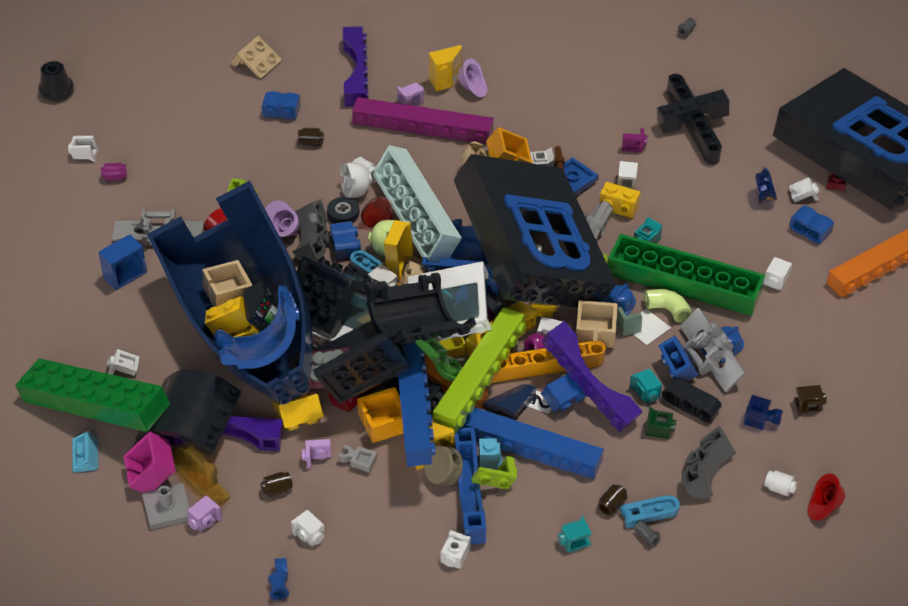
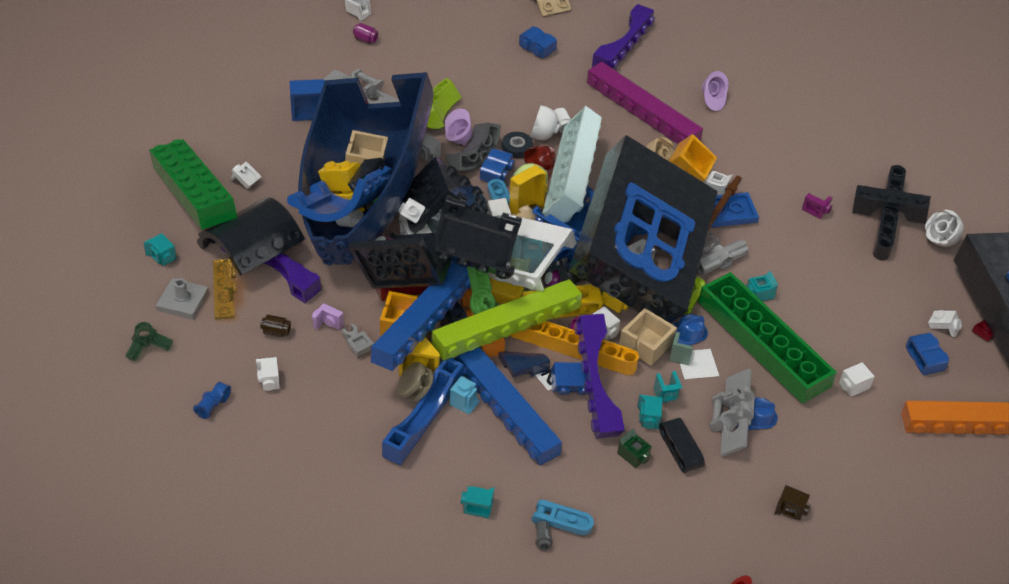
camera: 30 degrees right, 0 degrees up
(85, 452) = (164, 223): medium azure slope -> none
(108, 472) = (160, 249): none -> teal window
(149, 463) = (191, 256): dark pink piece -> none
(167, 564) = (140, 341): none -> clear green axle
(204, 514) = (200, 318): lavender brick -> none
(299, 410) = (342, 278): yellow slope -> none
(310, 136) = (540, 75): dark brown brick -> none
(323, 316) = (411, 210): none -> white bracket
(411, 94) = (651, 81): lavender brick -> none
(445, 67) = (696, 69): yellow slope -> none
(455, 550) = (368, 456): white brick -> none
(500, 478) = (451, 417): lime bracket -> none
(612, 499) = (537, 490): dark brown brick -> none
(622, 199) = (761, 246): yellow brick -> none
(627, 174) = (785, 230): white brick -> none
(646, 359) = (667, 392): none -> teal window
(668, 300) = (732, 350): yellowish green cylinder -> none
(678, 360) = (695, 404): blue brick -> none
(684, 29) = (945, 135): dark grey pin -> none
(704, 463) = (644, 506): dark grey brick -> none
(748, 111) = (944, 228): none -> white cylinder
(759, 412) = (733, 489): clear blue brick -> none
(765, 186) = (906, 298): clear blue hat -> none
(780, 483) = (702, 561): white brick -> none

